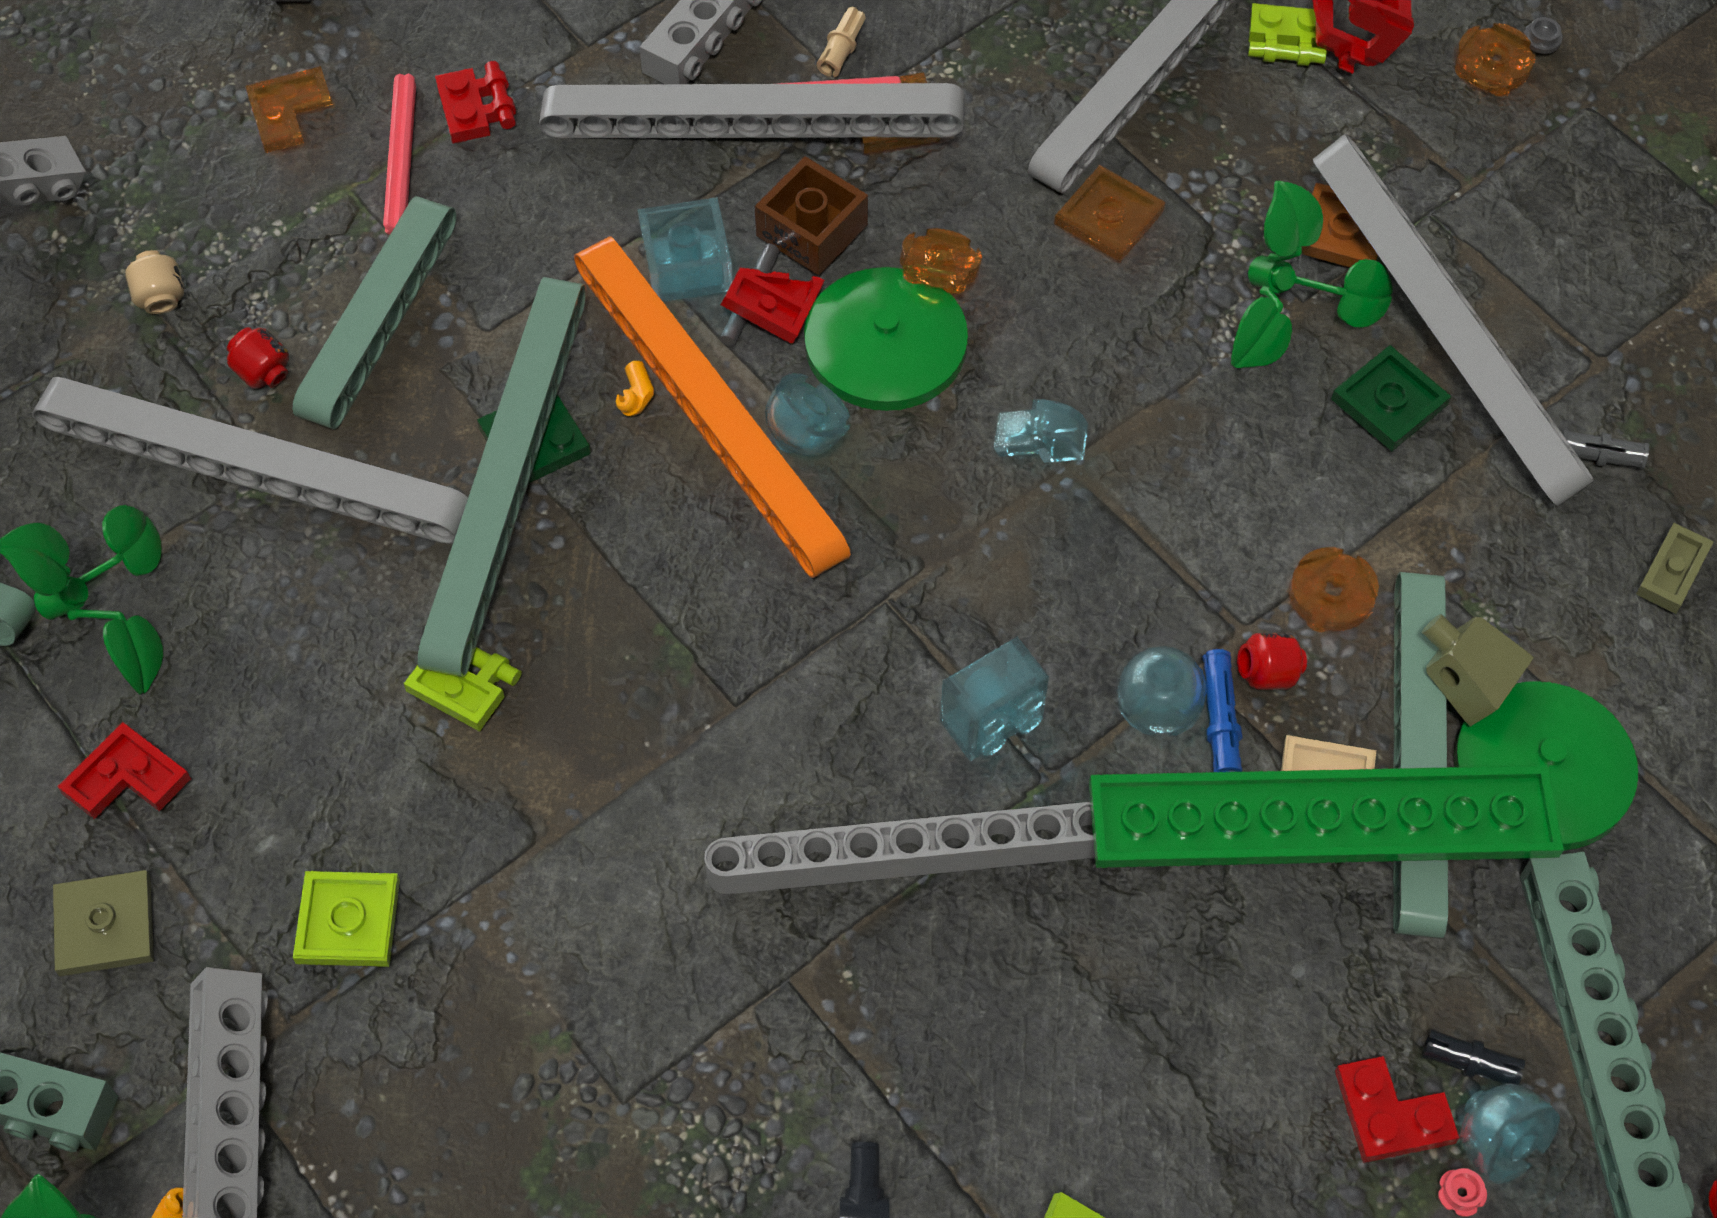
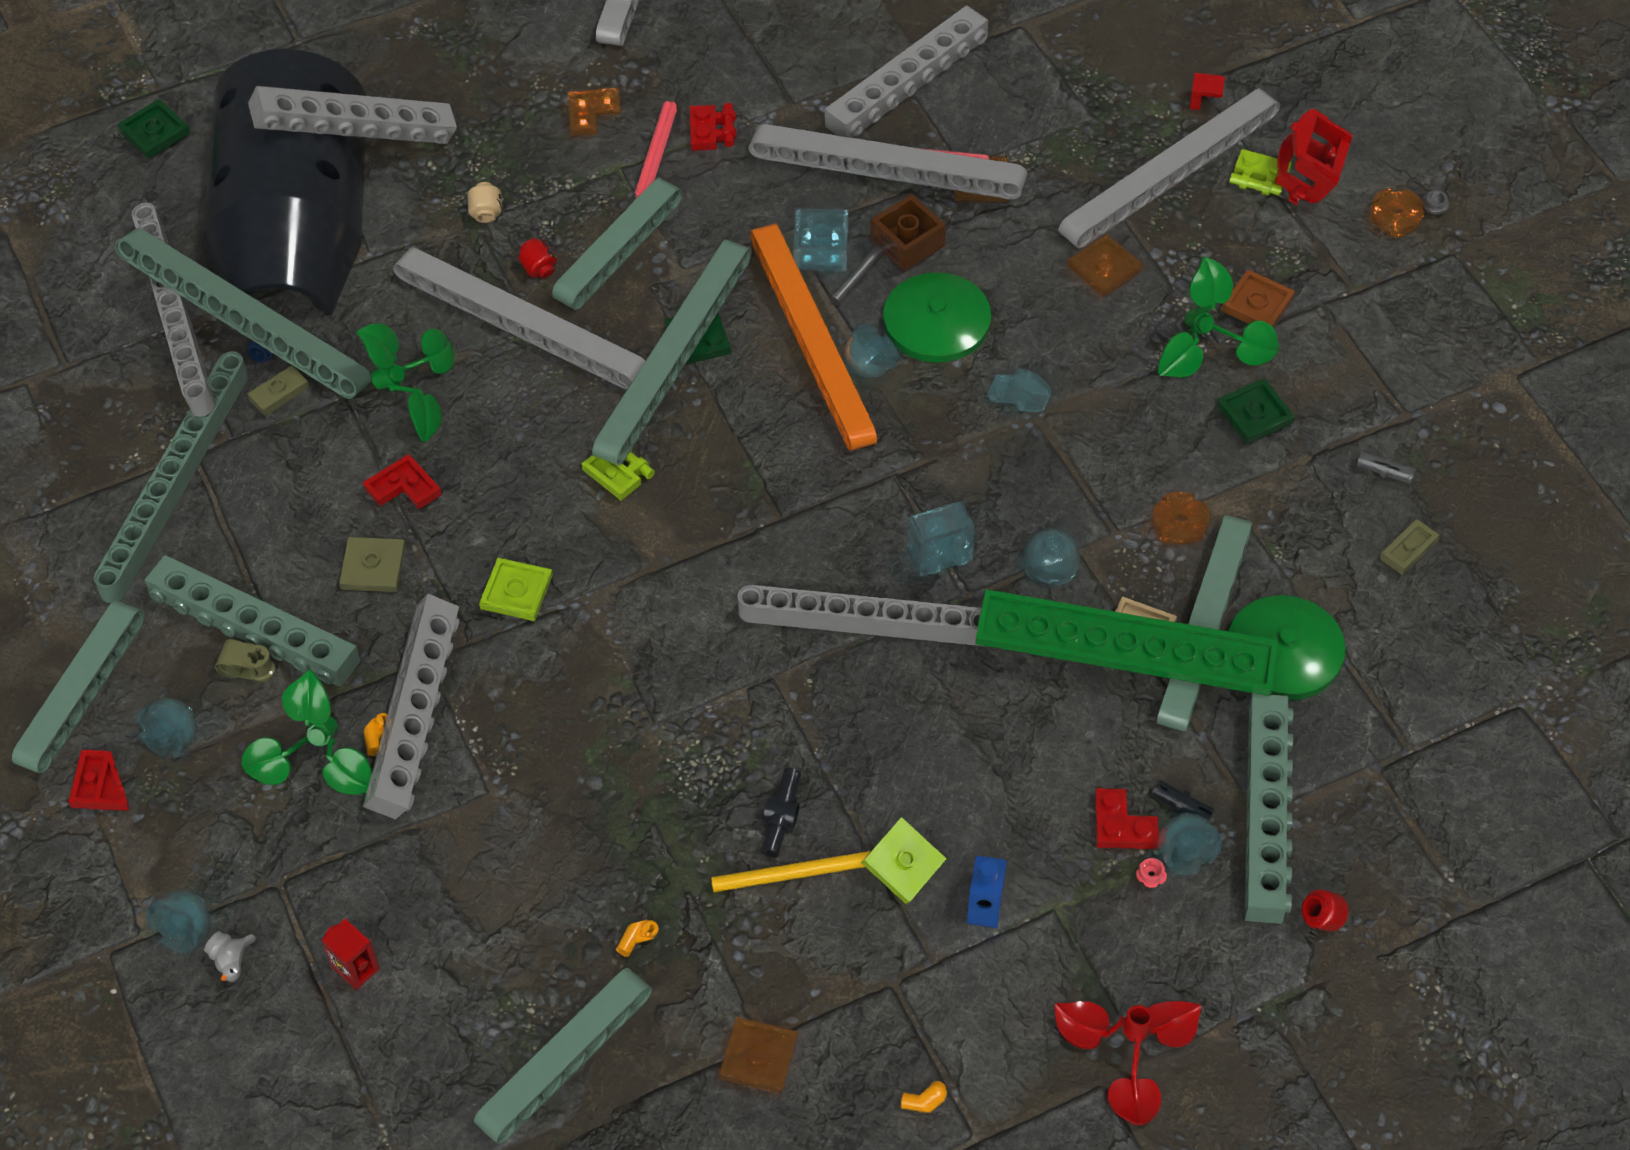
camera: 15 degrees right, 5 degrees down
(639, 393) = (771, 321): light orange arm -> none
(772, 300) = (869, 280): red wing -> none
(841, 42) = (958, 129): tan axle -> none
(940, 260) = (984, 274): clear orange plate -> none
(1223, 729) = (1084, 586): blue pin -> none
(1271, 661) = (1126, 552): red head -> none
(1453, 321) = (1308, 369): light grey beam -> none
(1474, 665) = (1251, 574): olive torso -> none

